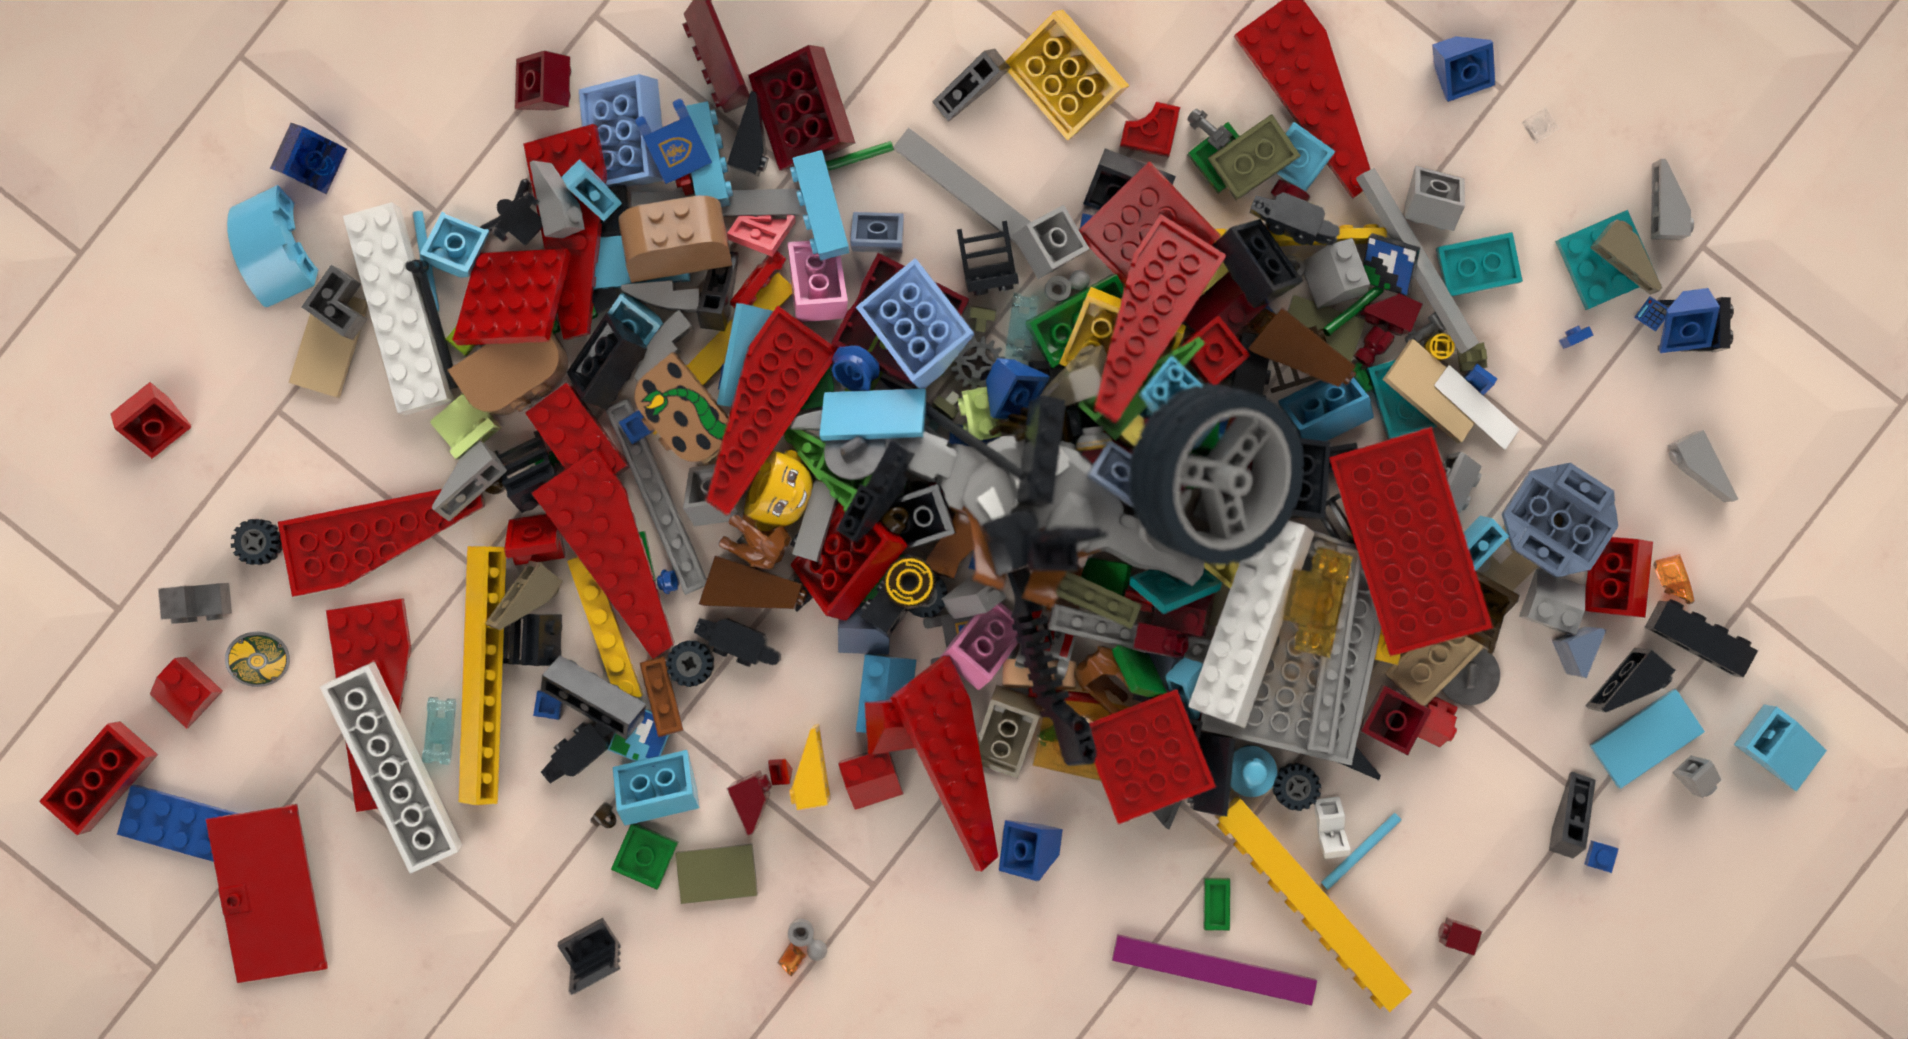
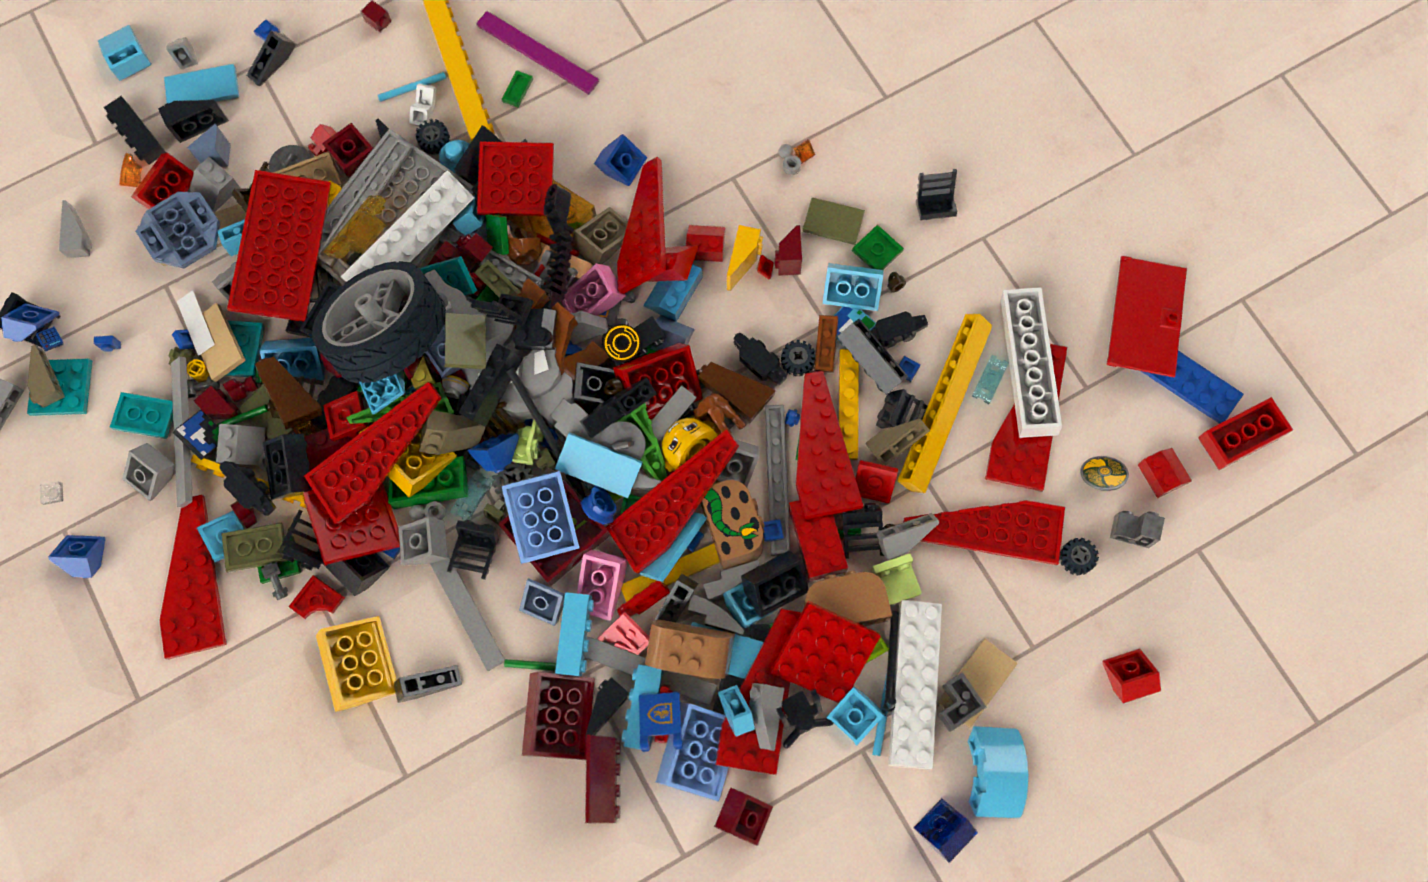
camera: 155 degrees left, 15 degrees down
(1093, 487) = (465, 341): none -> olive tile
(1194, 170) = (293, 551): none -> black plate

